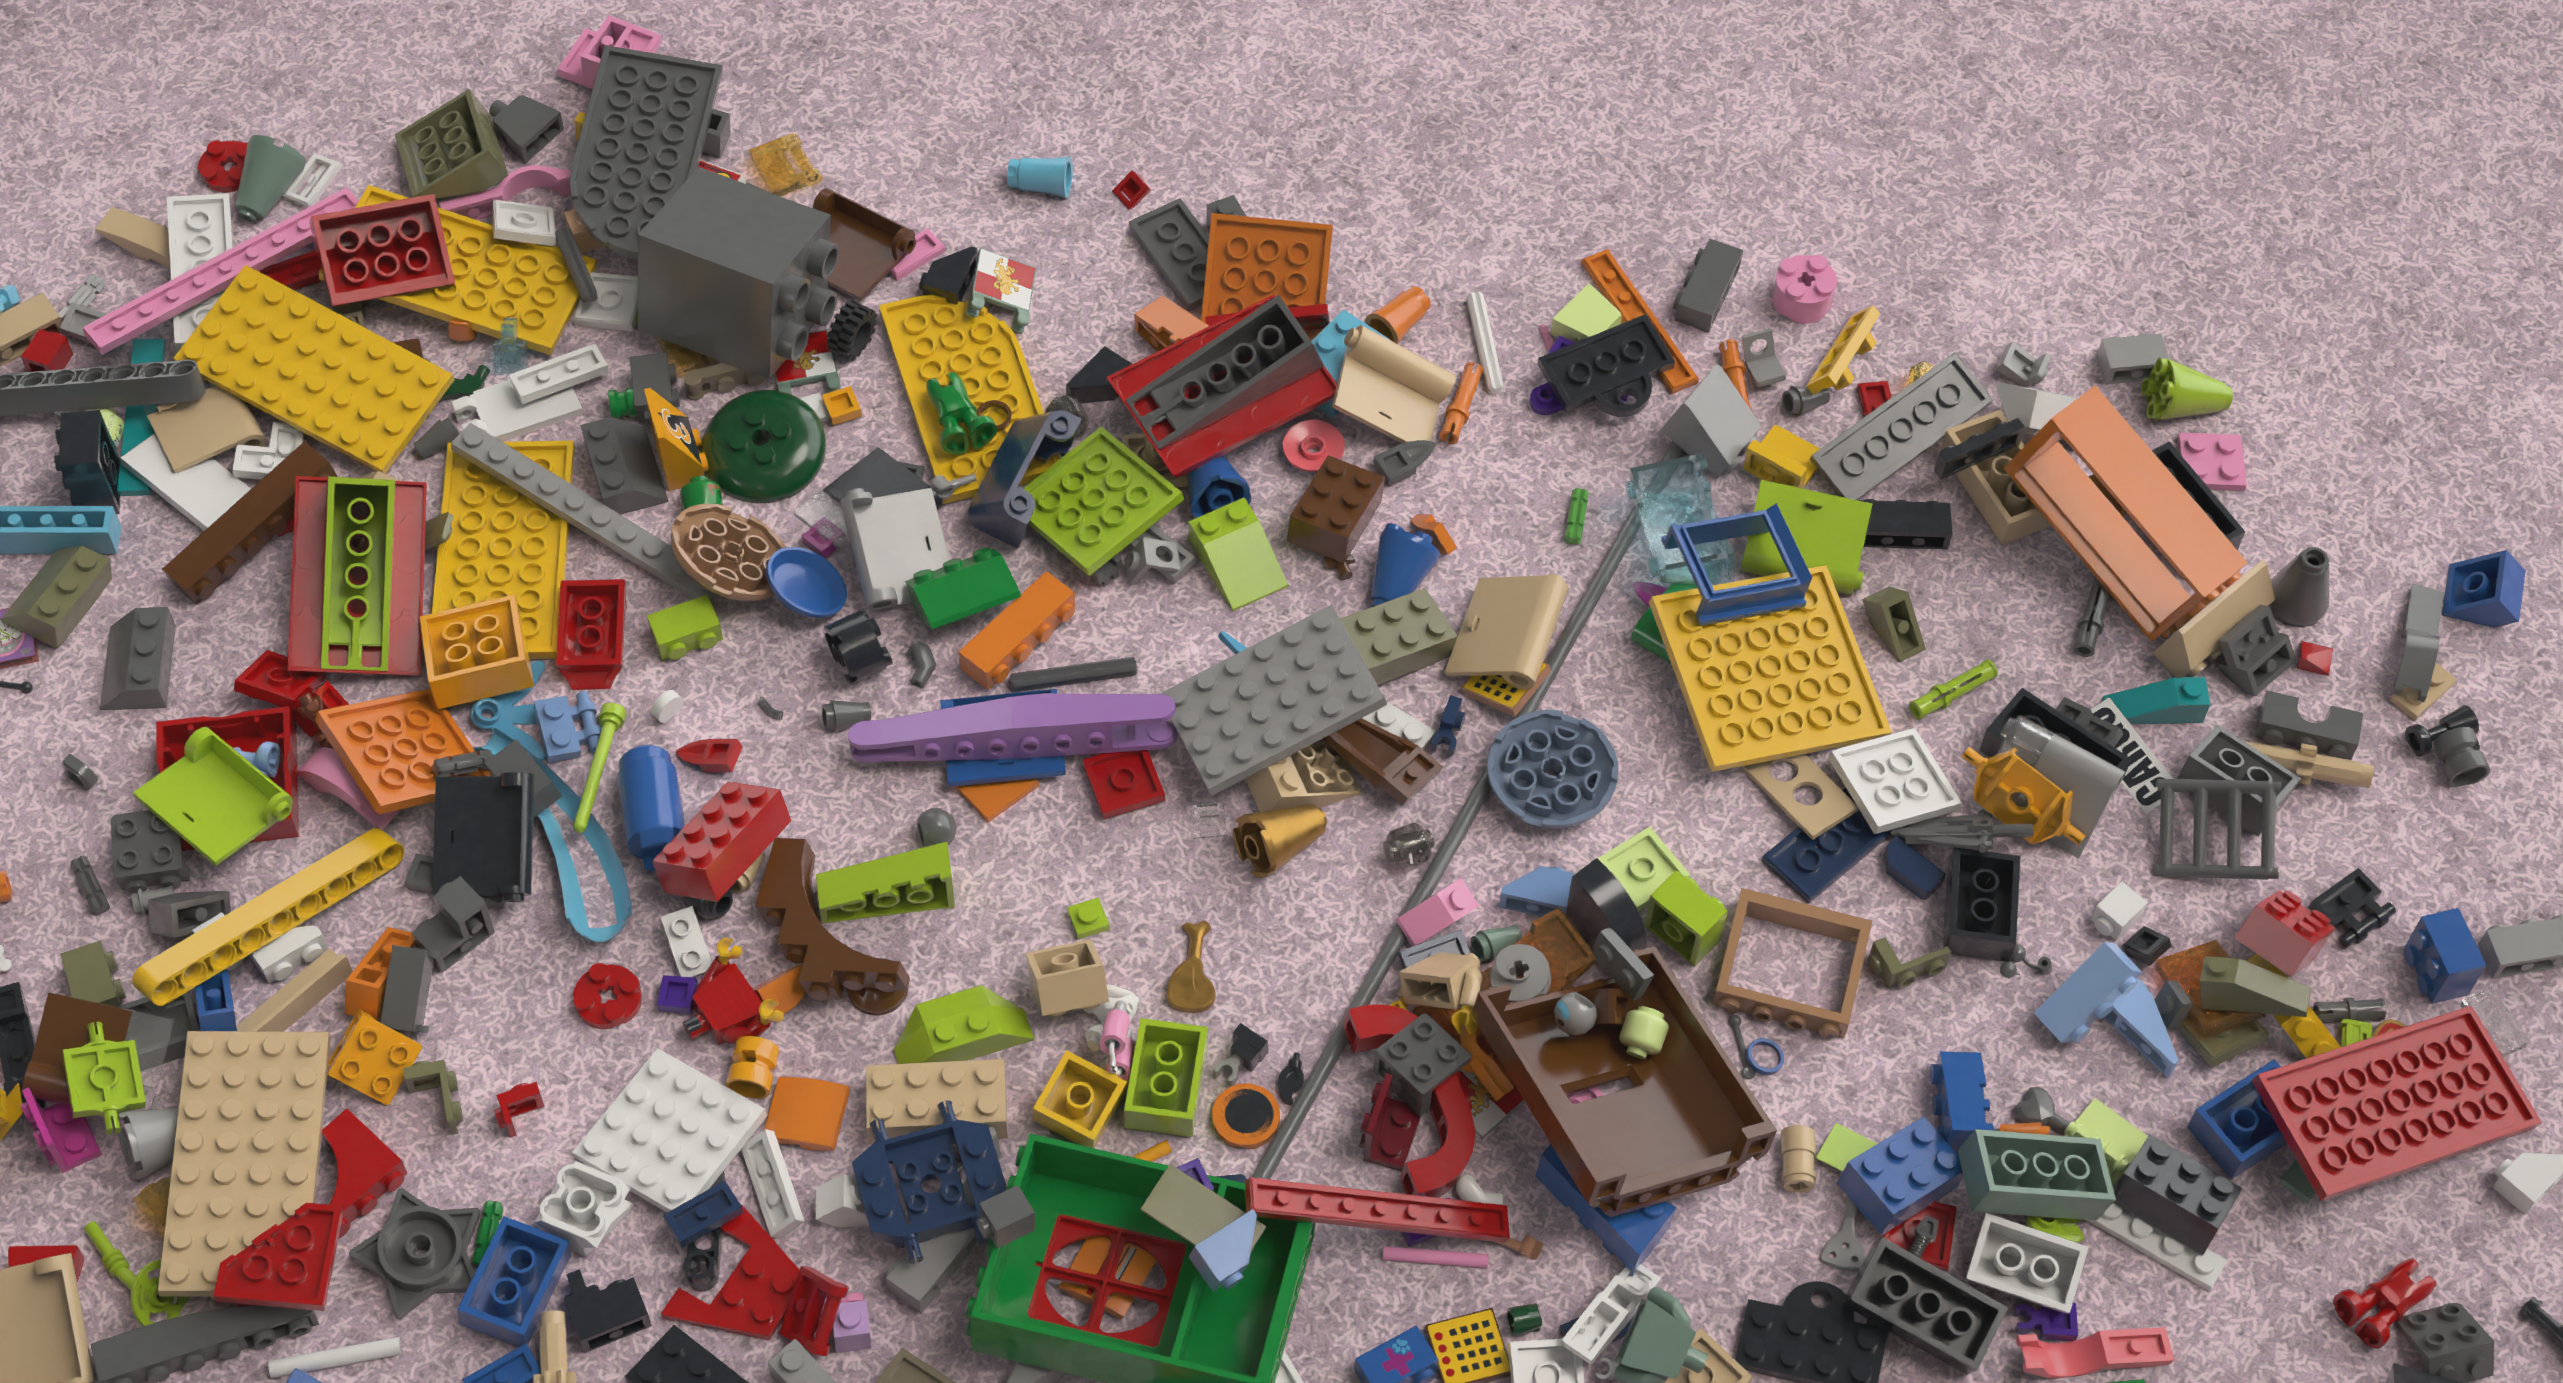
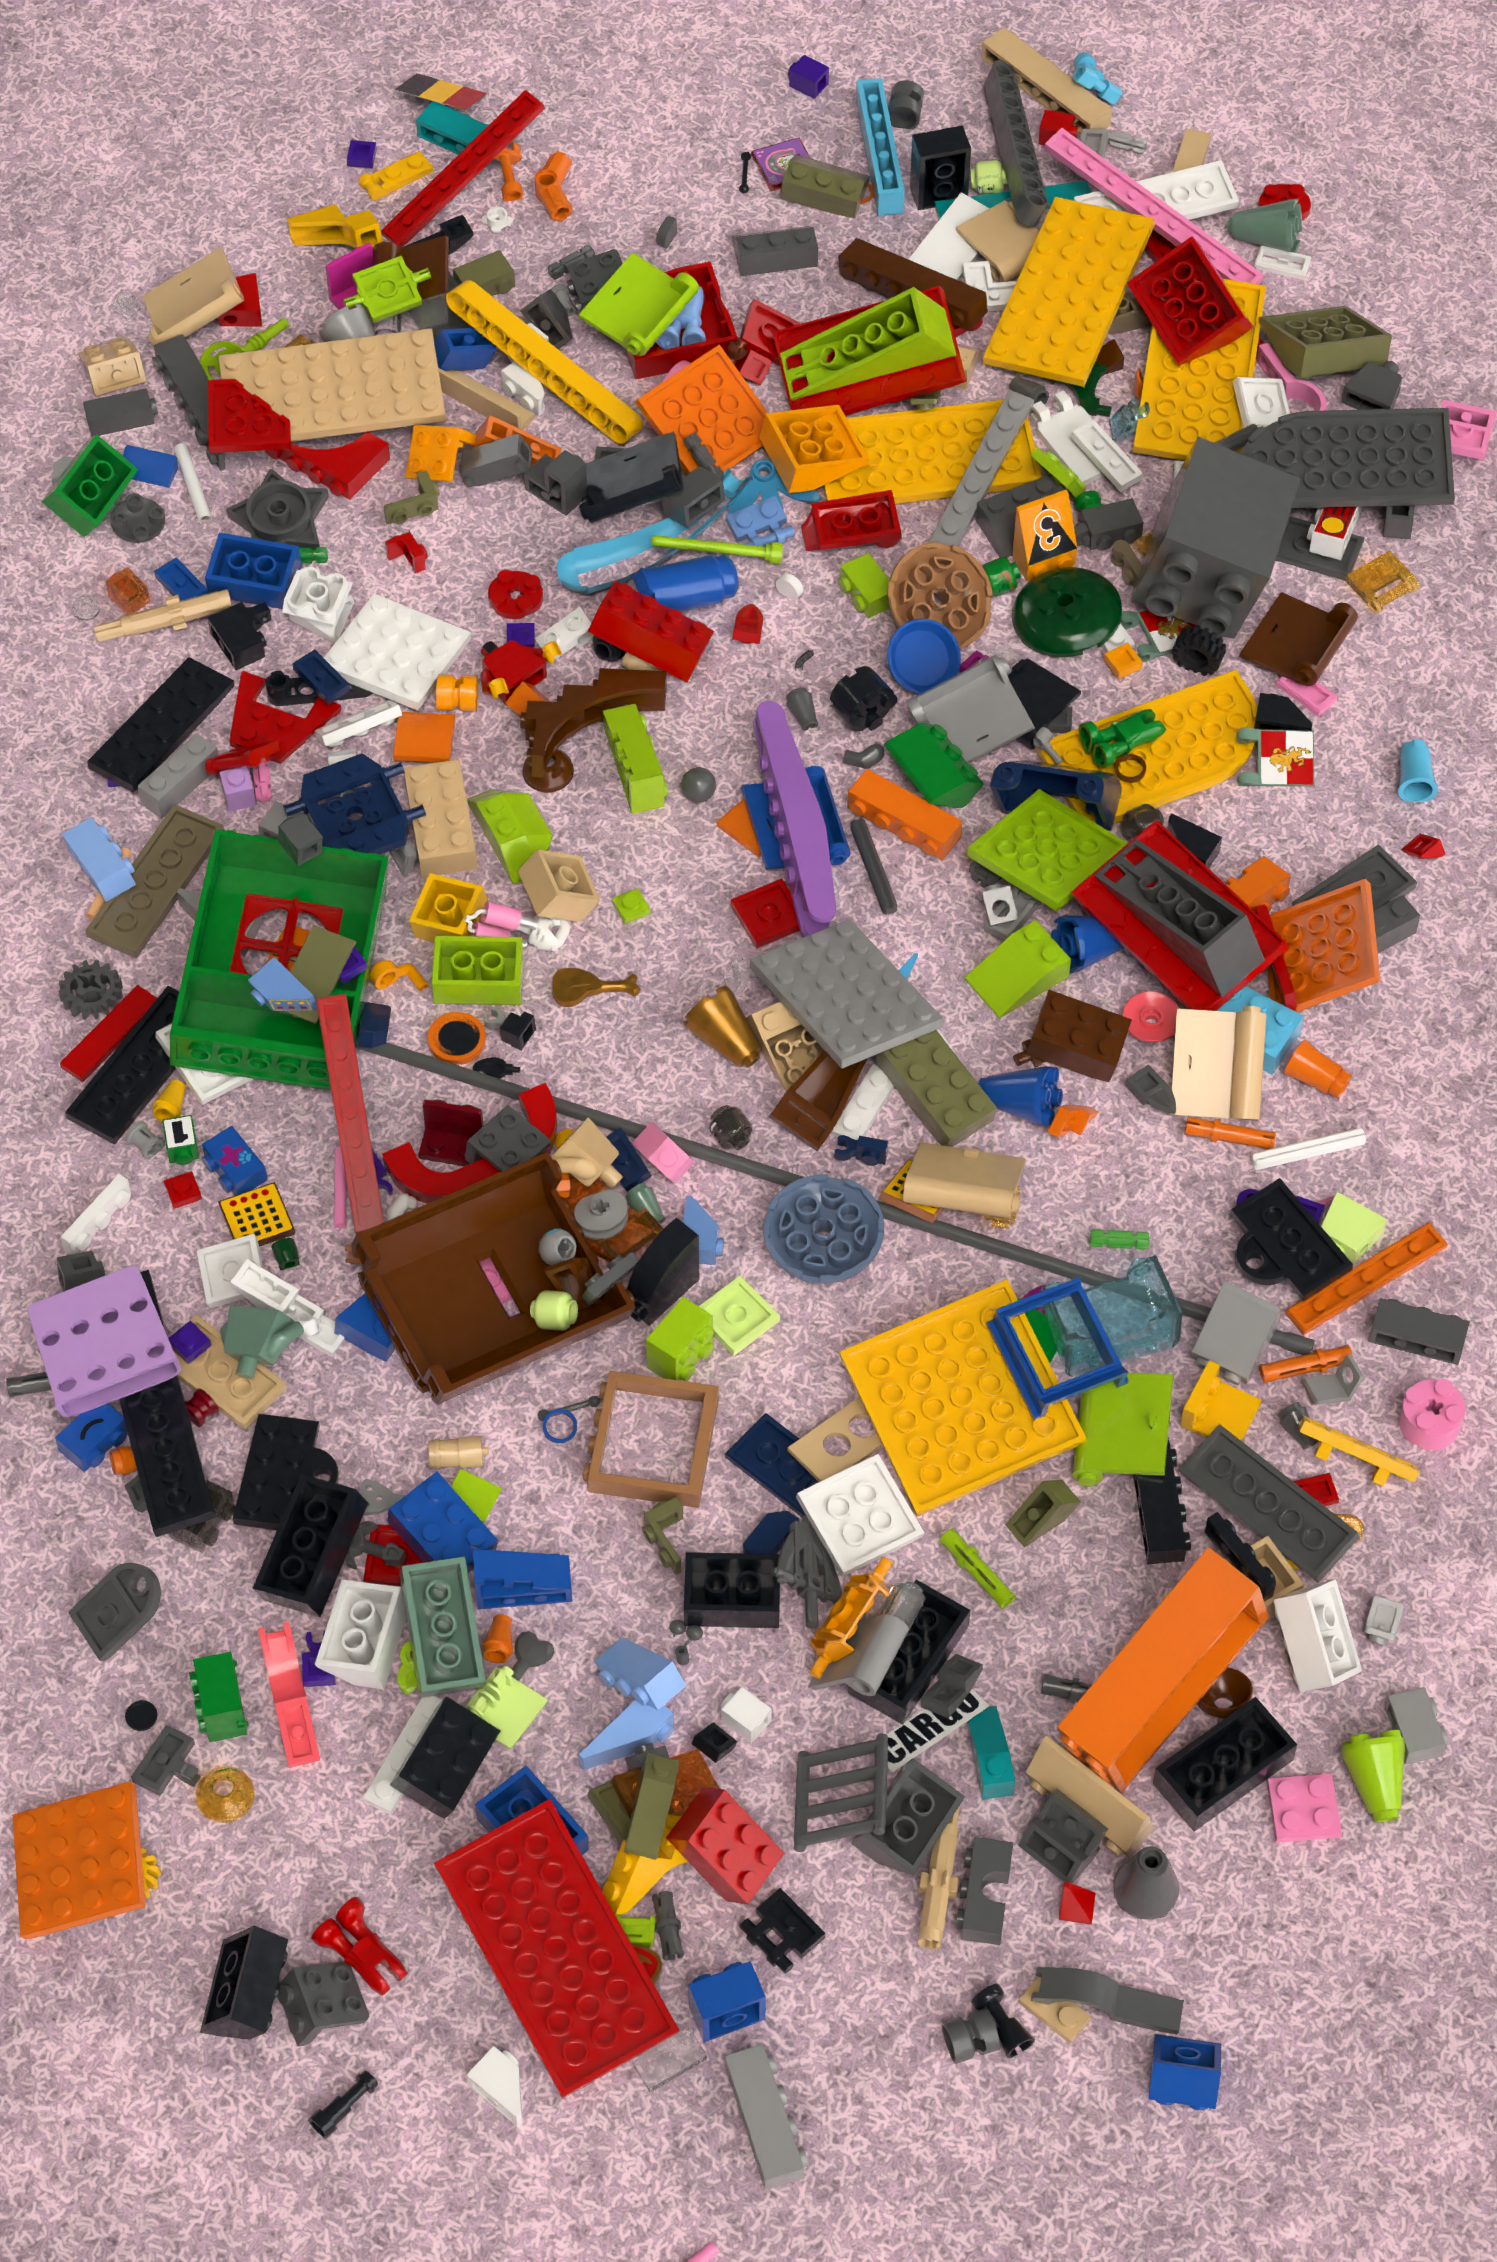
camera: 85 degrees right, 0 degrees up
(569, 421) = (1062, 475): none -> lime plate

